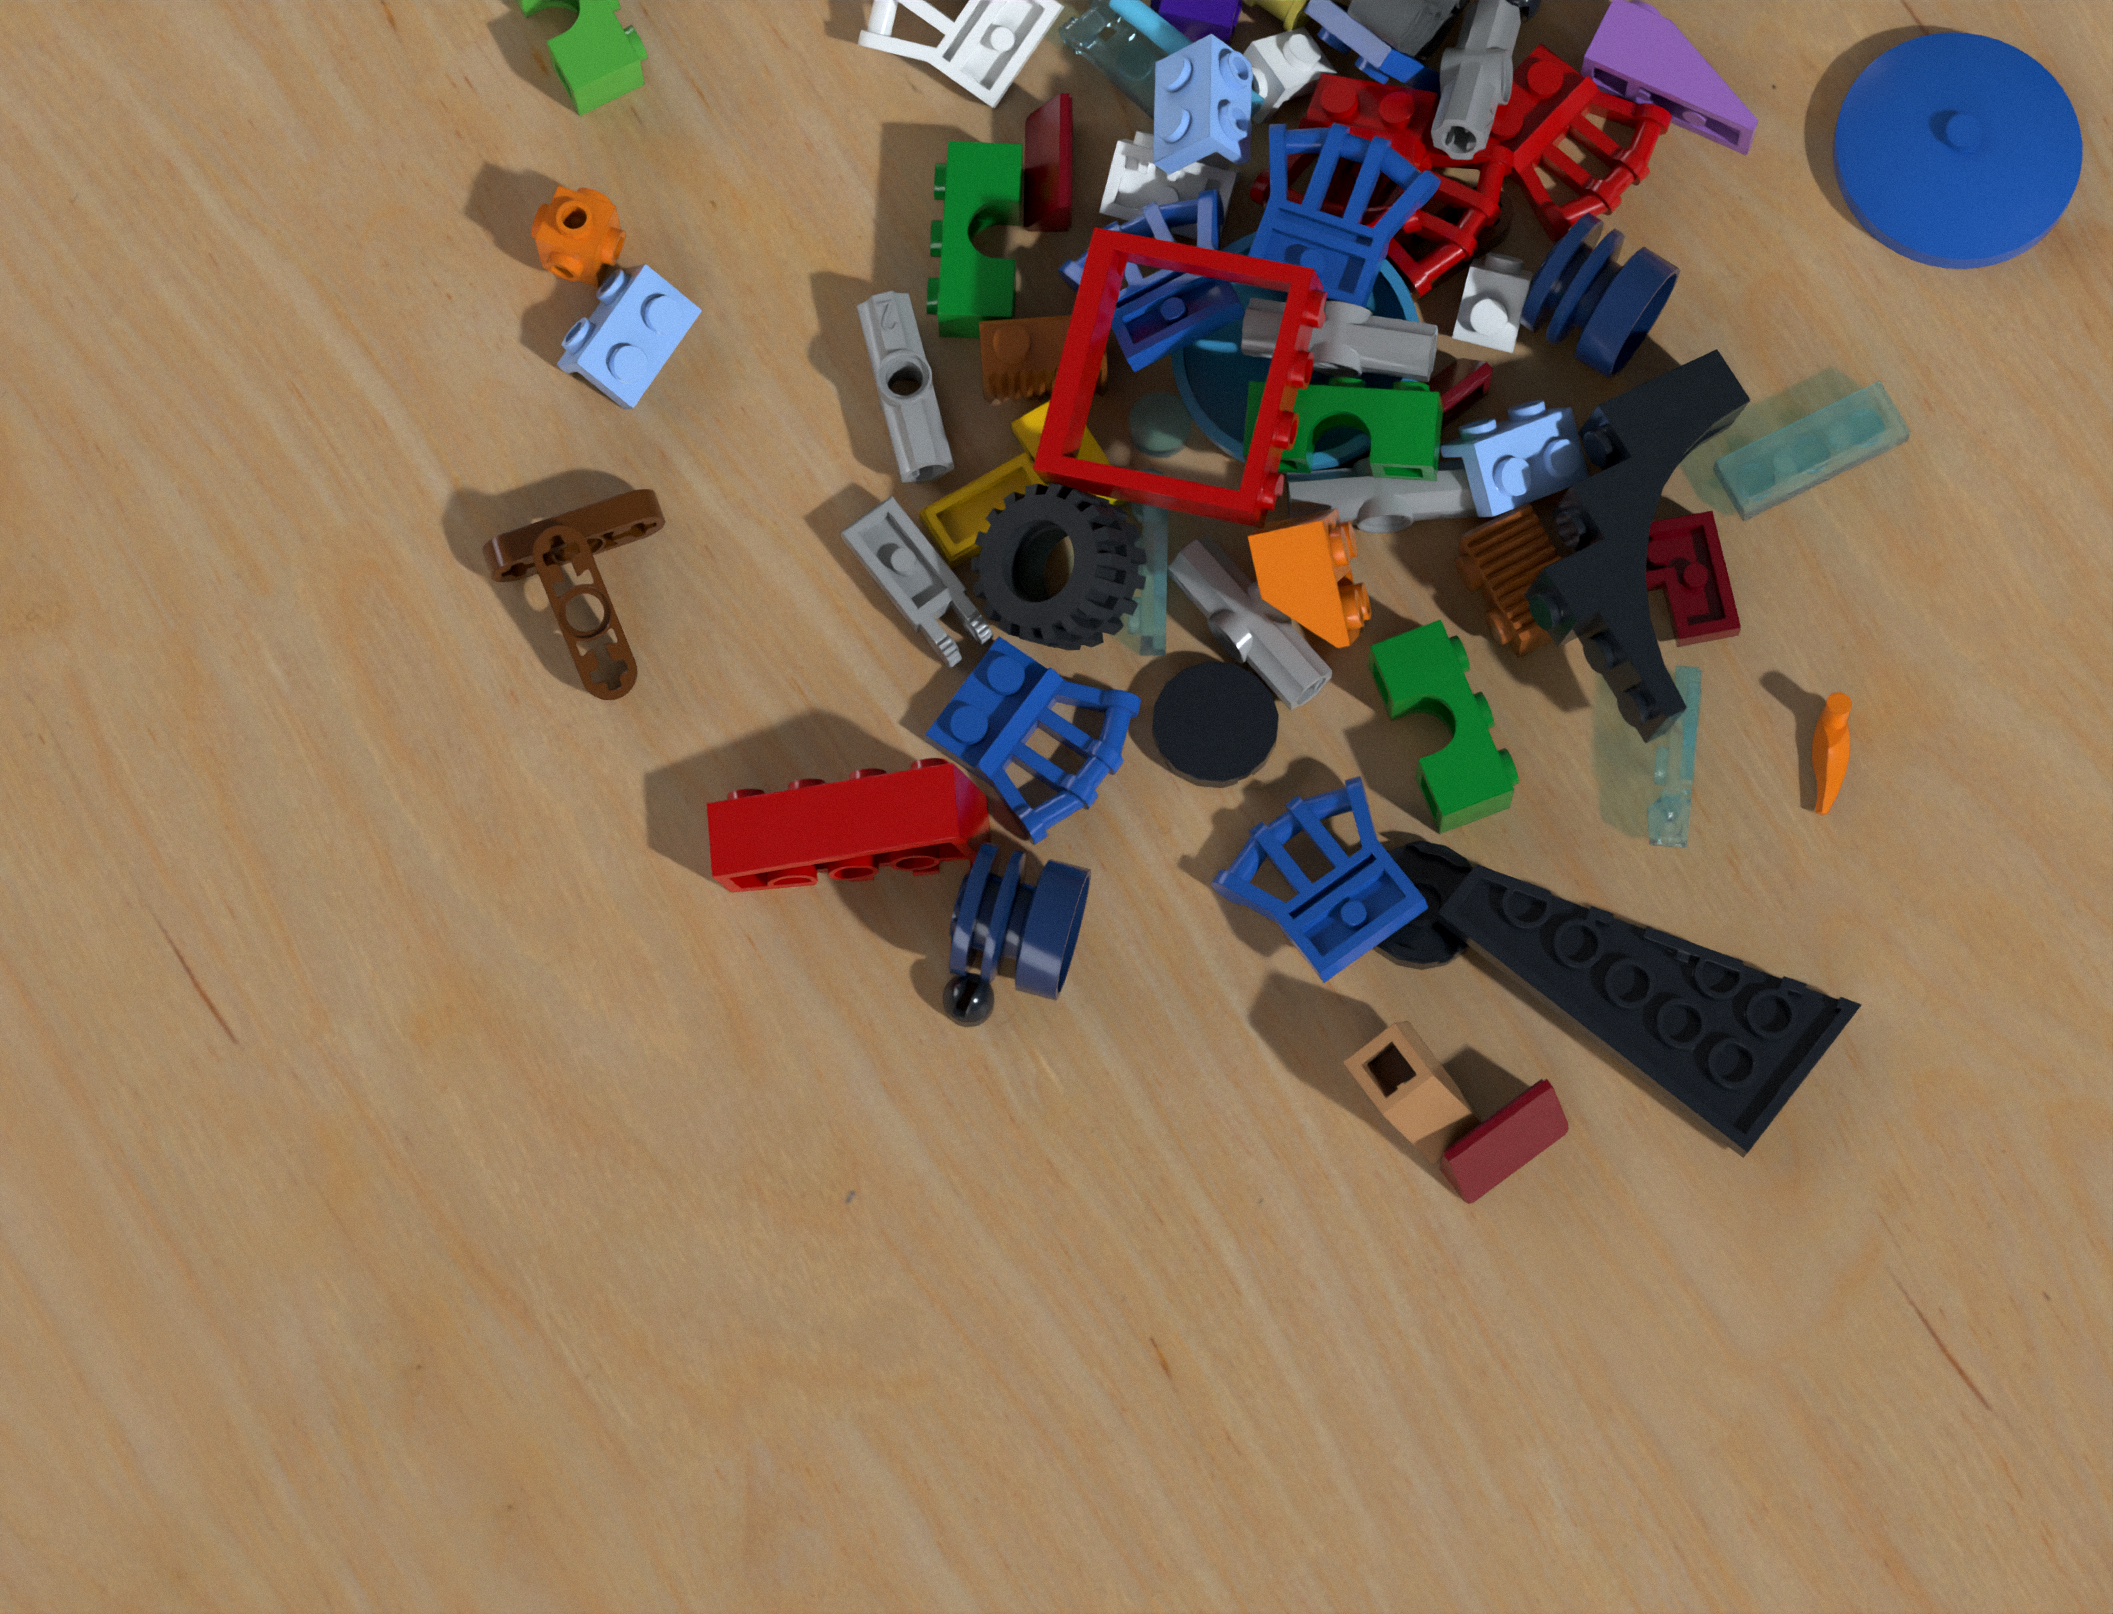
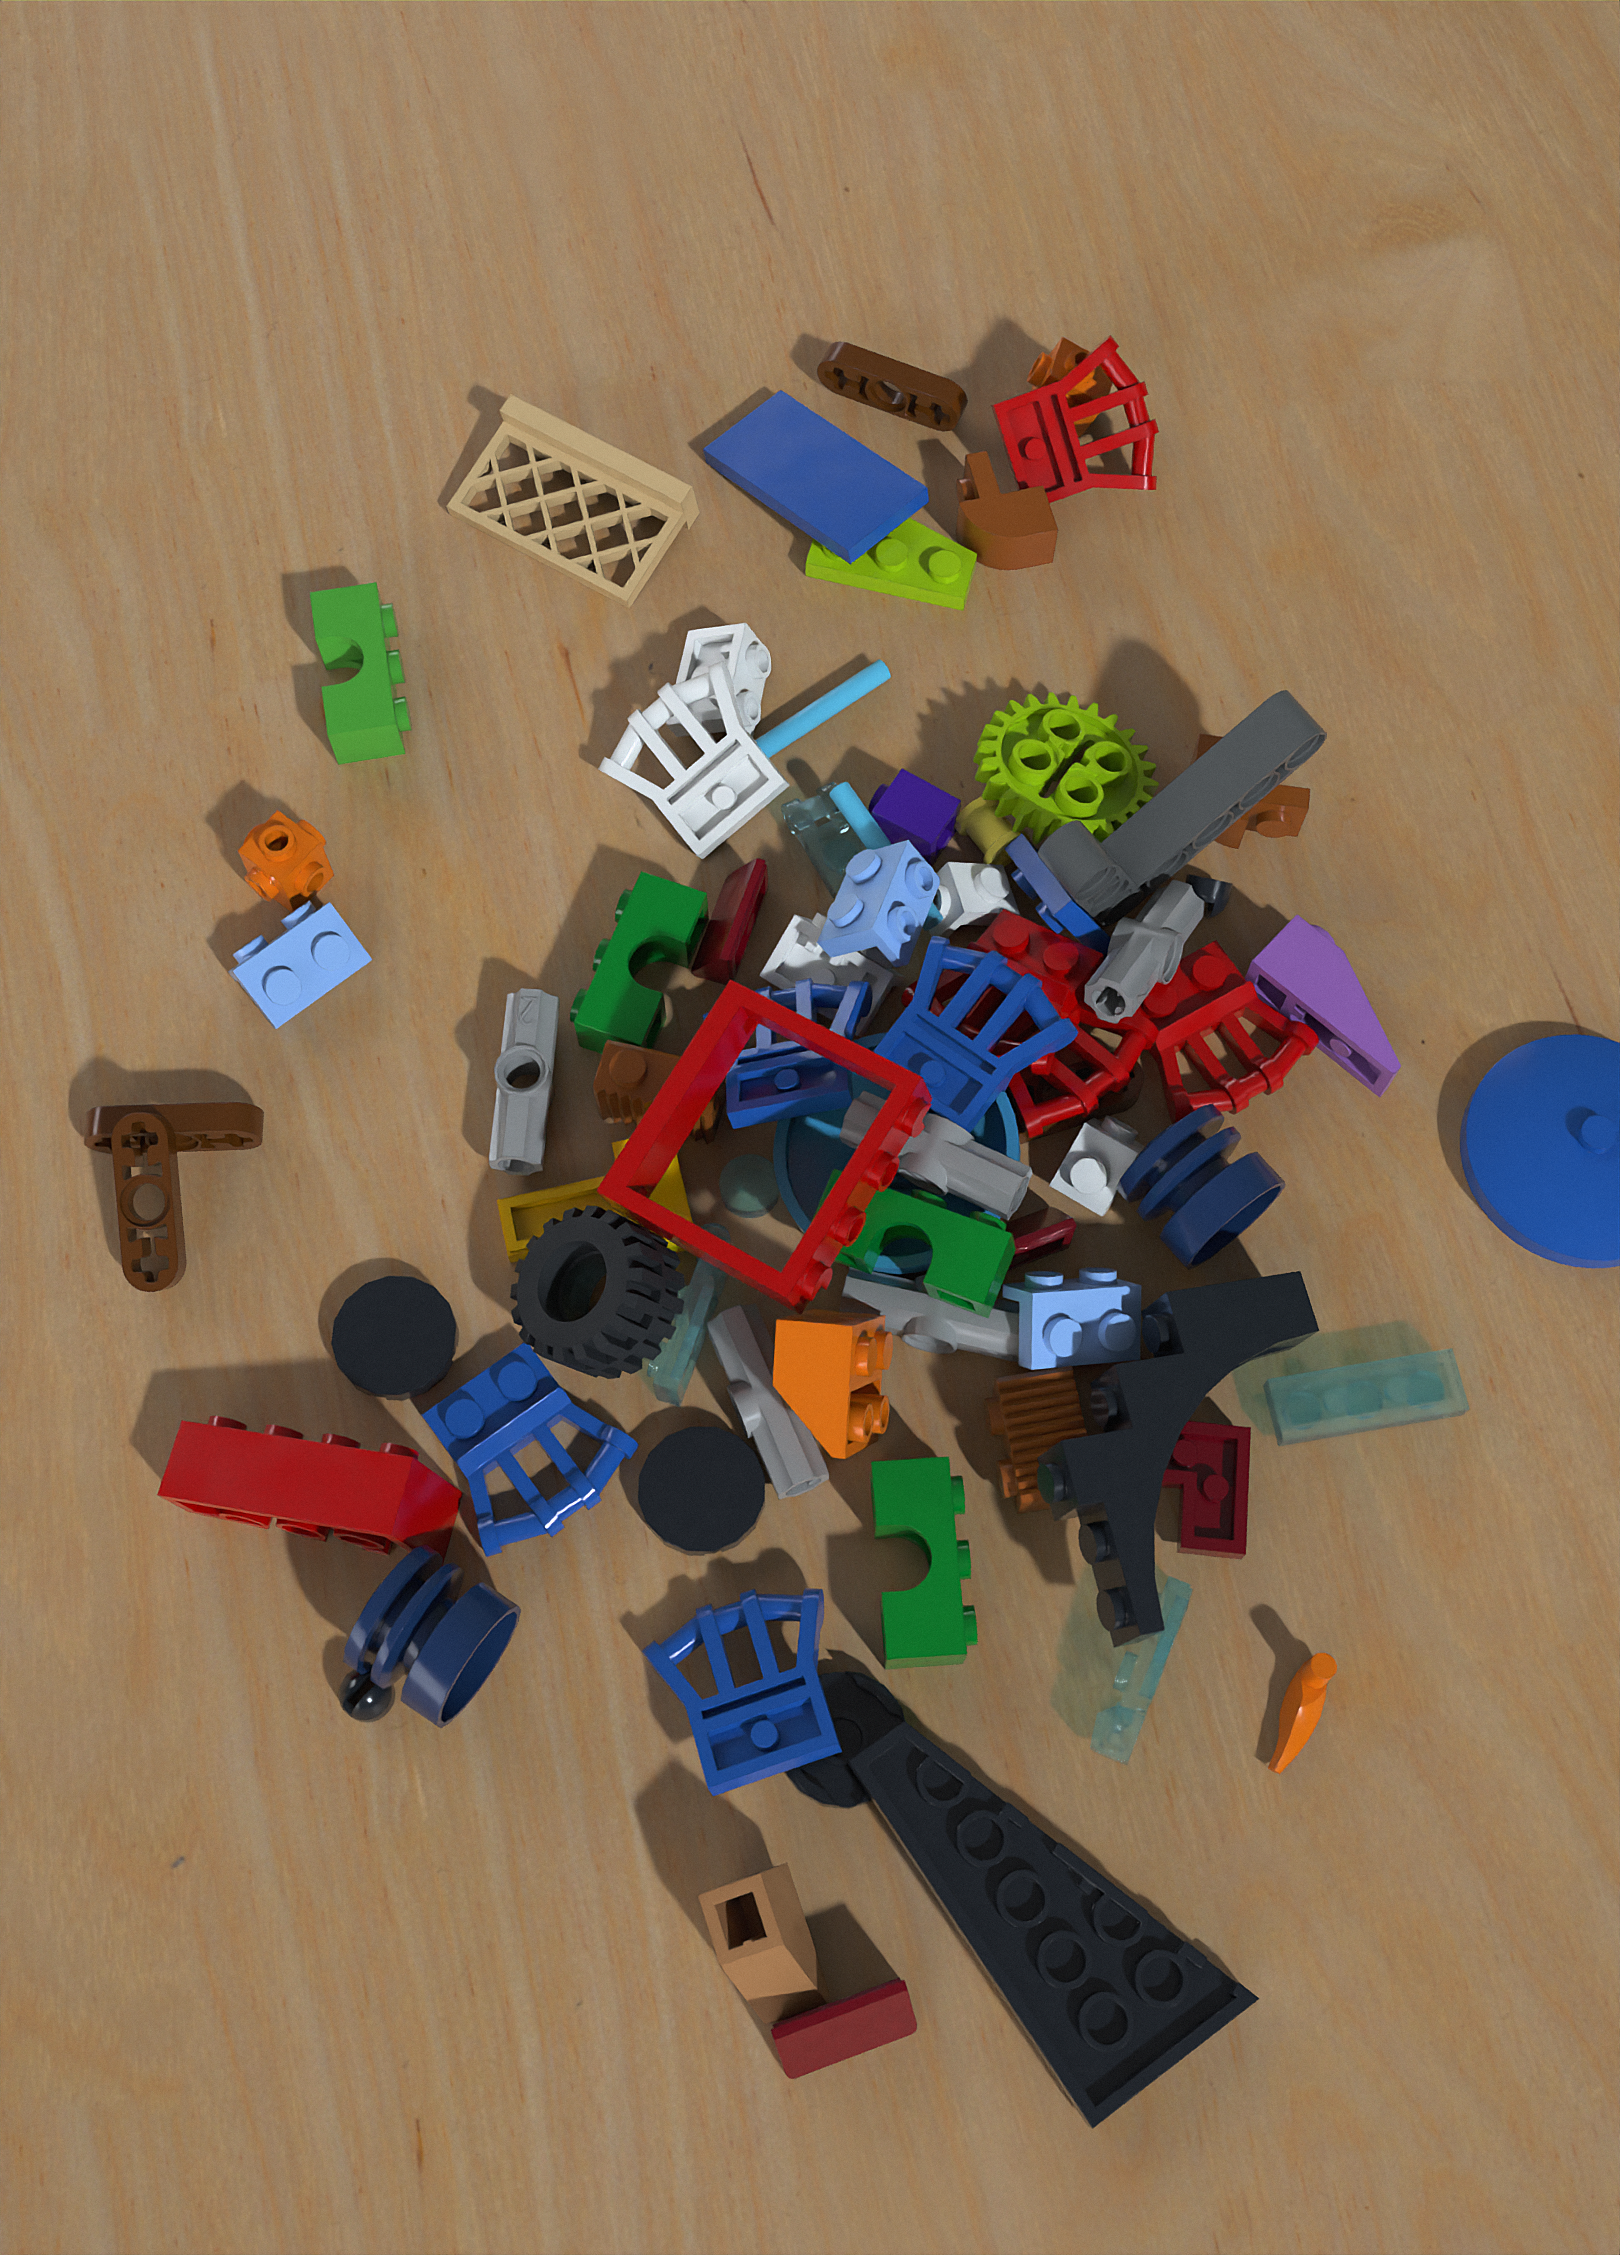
camera: 15 degrees right, 5 degrees down
(869, 671) = (395, 1337): none -> black tile
(914, 576) = (467, 1258): light grey hinge -> none

